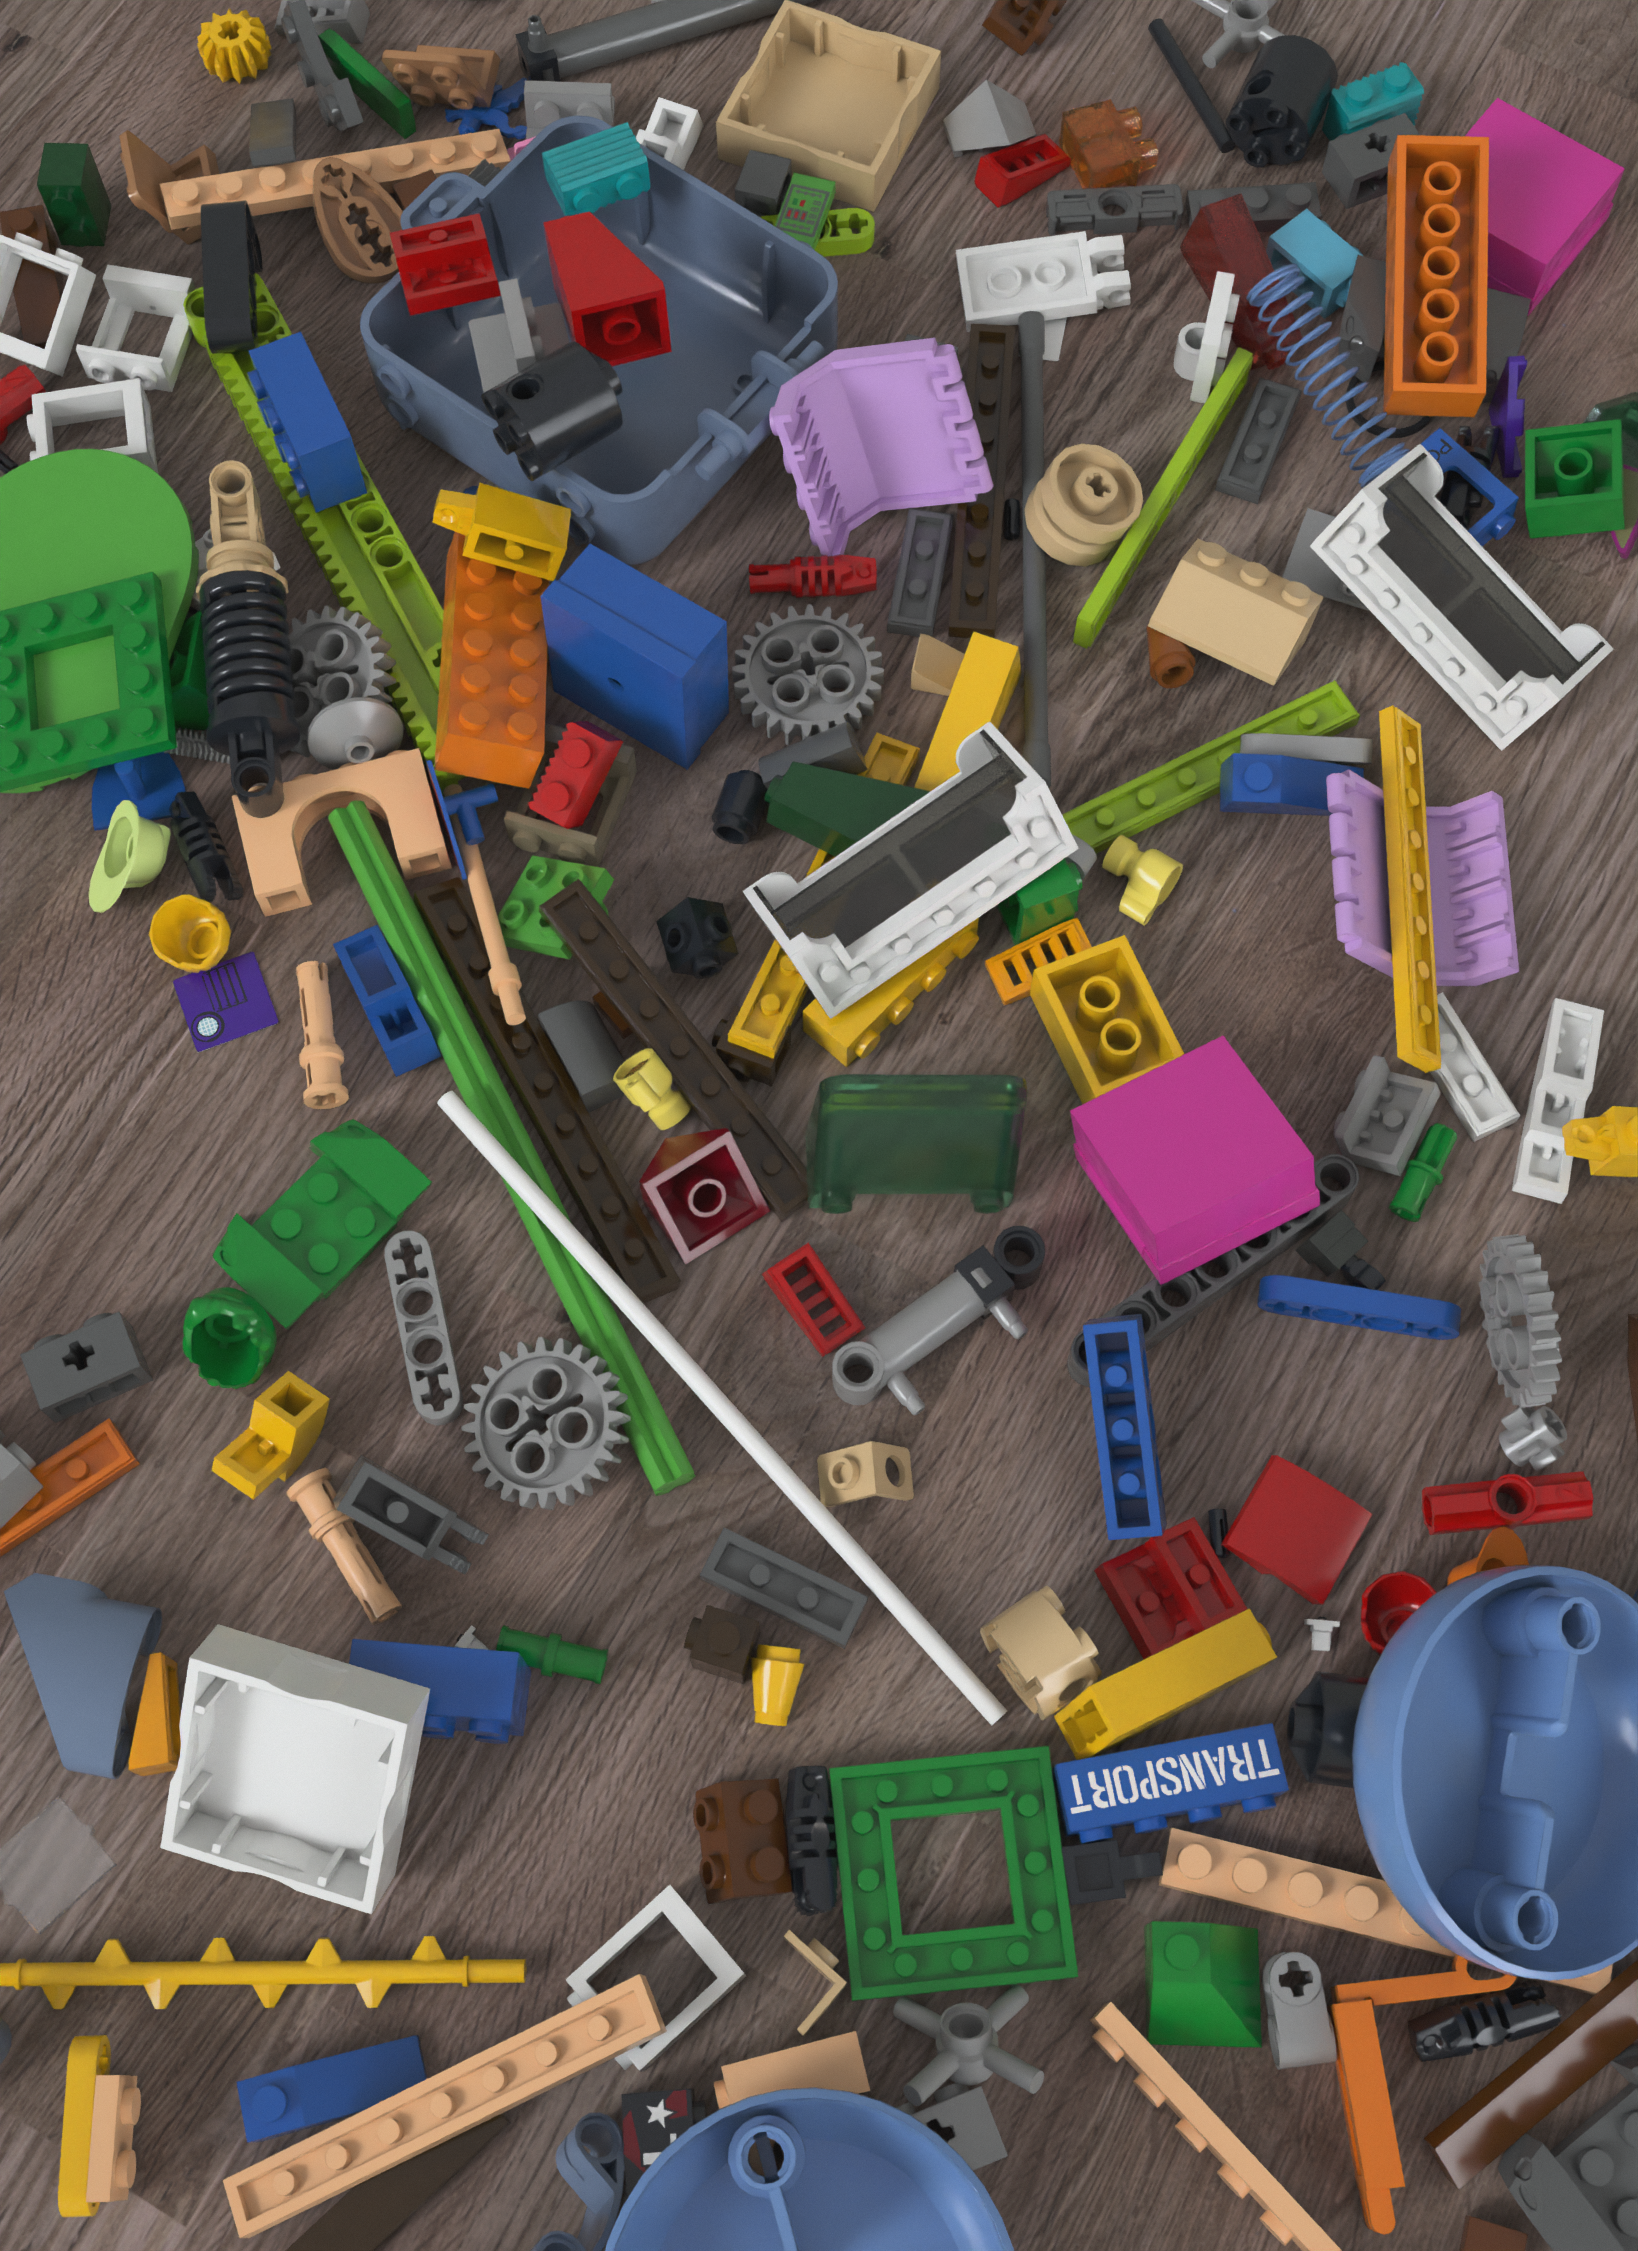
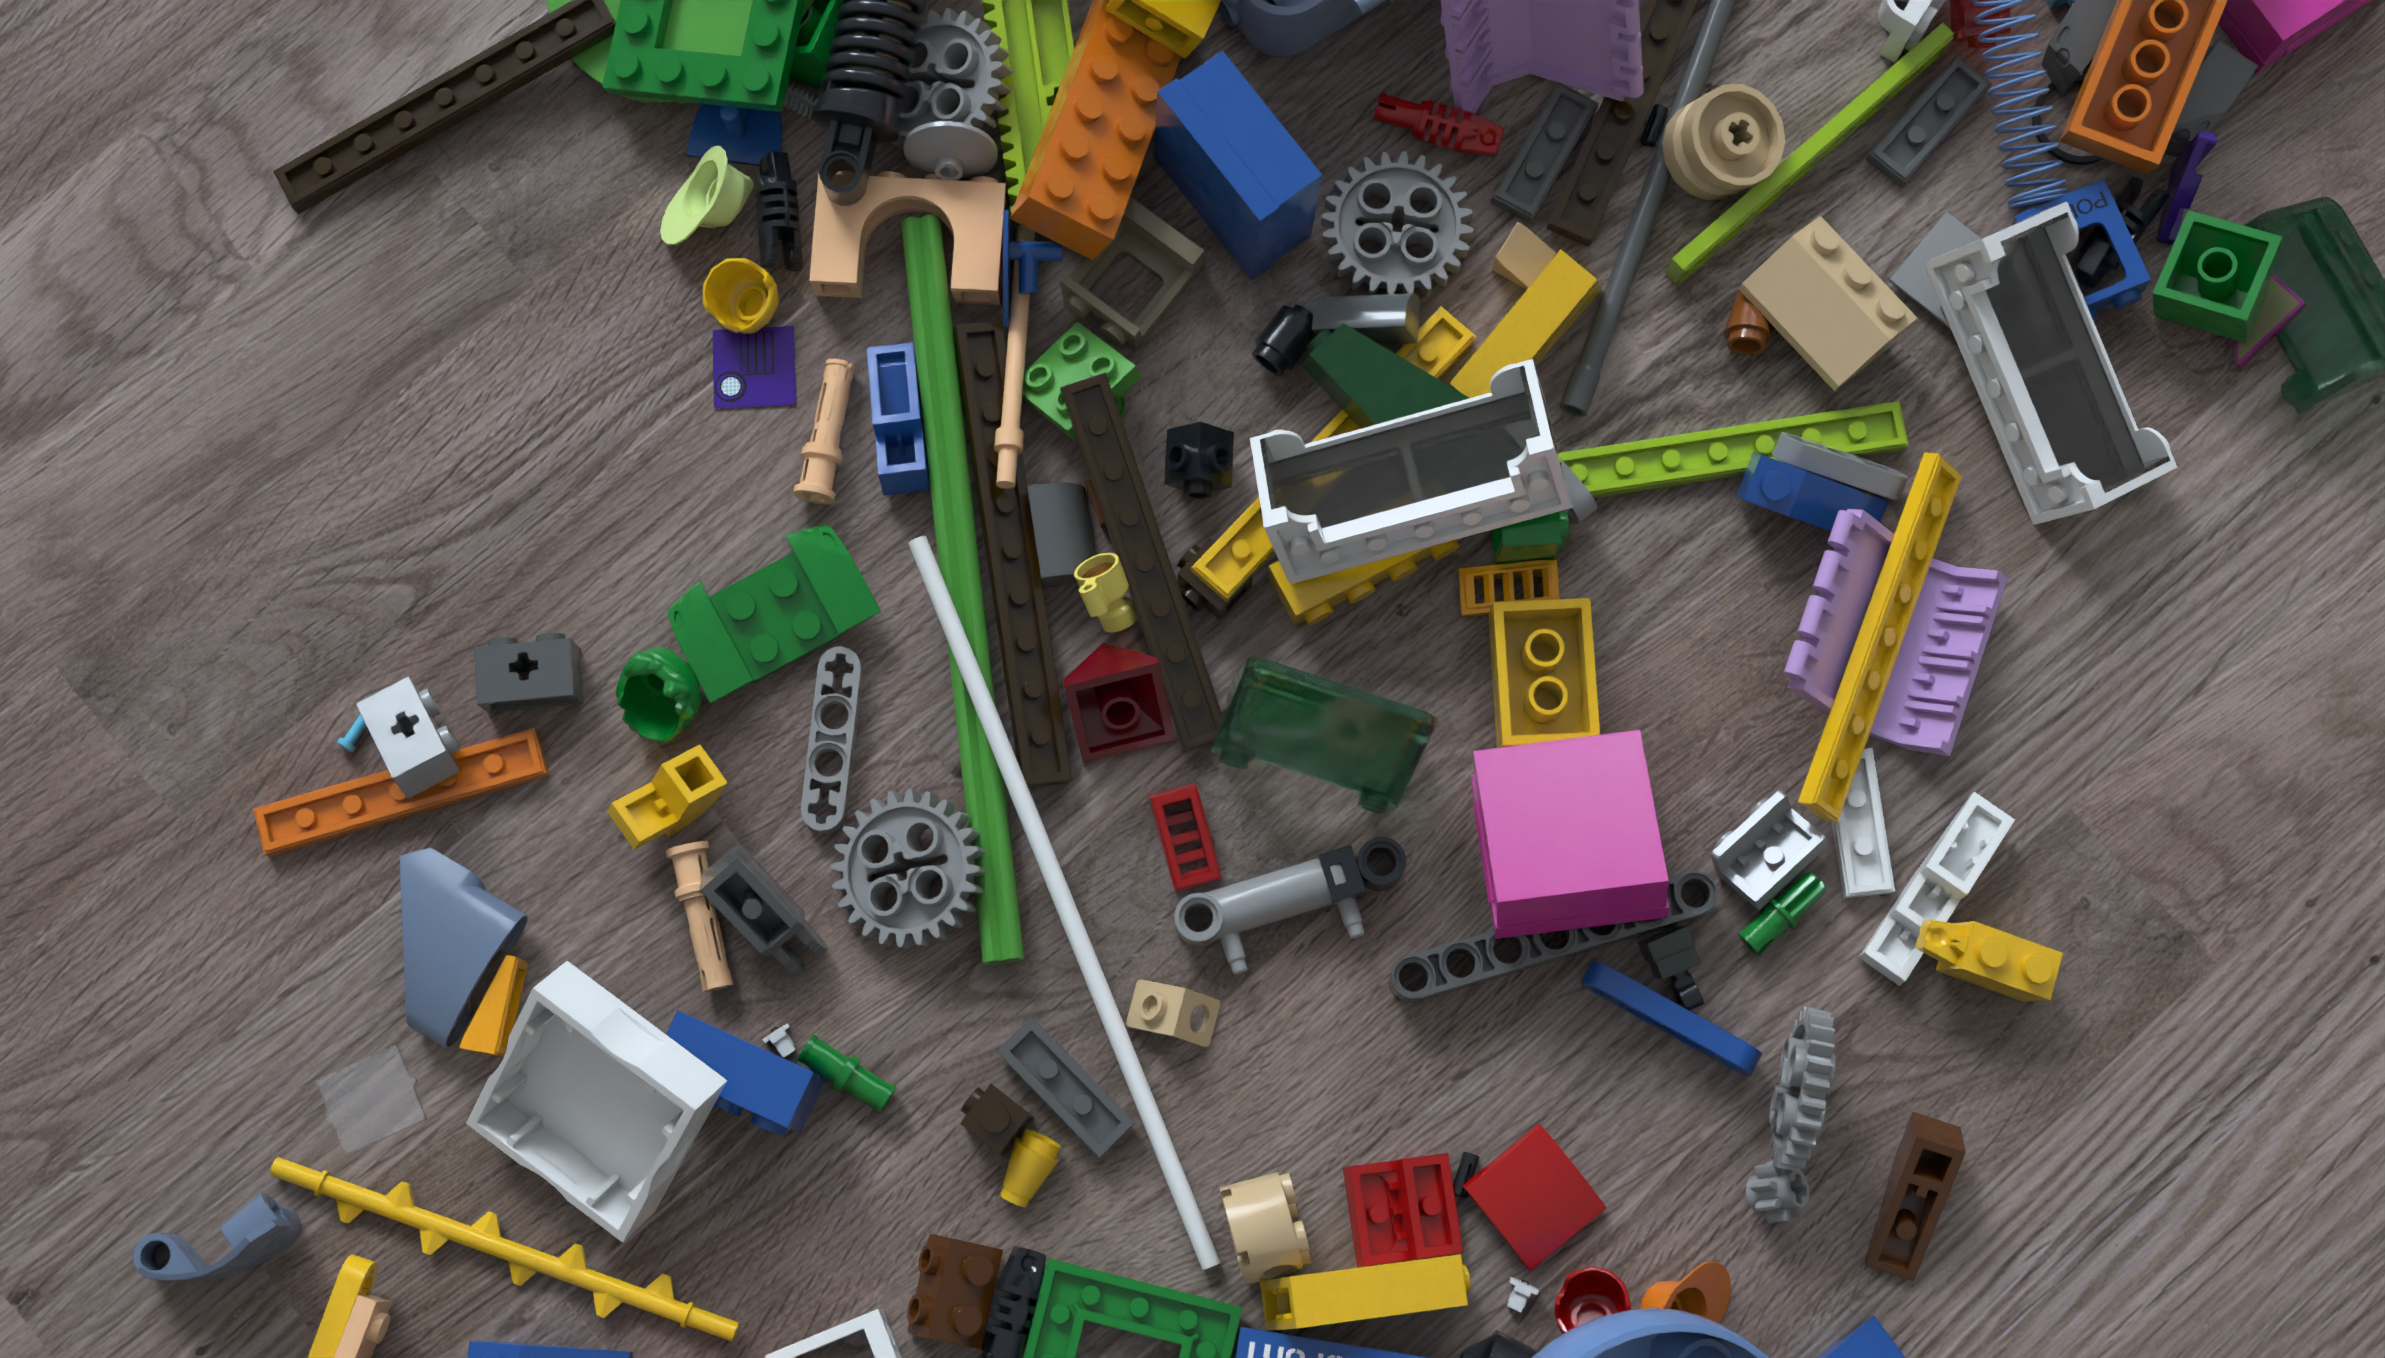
camera: 20 degrees right, 10 degrees up
(575, 774) = (1140, 261): red brick -> none
(1125, 1427) = (1411, 1057): blue brick -> none
(1149, 875) = (1642, 539): light yellow piece -> none
(1538, 1501) = (1760, 1247): red piece -> none

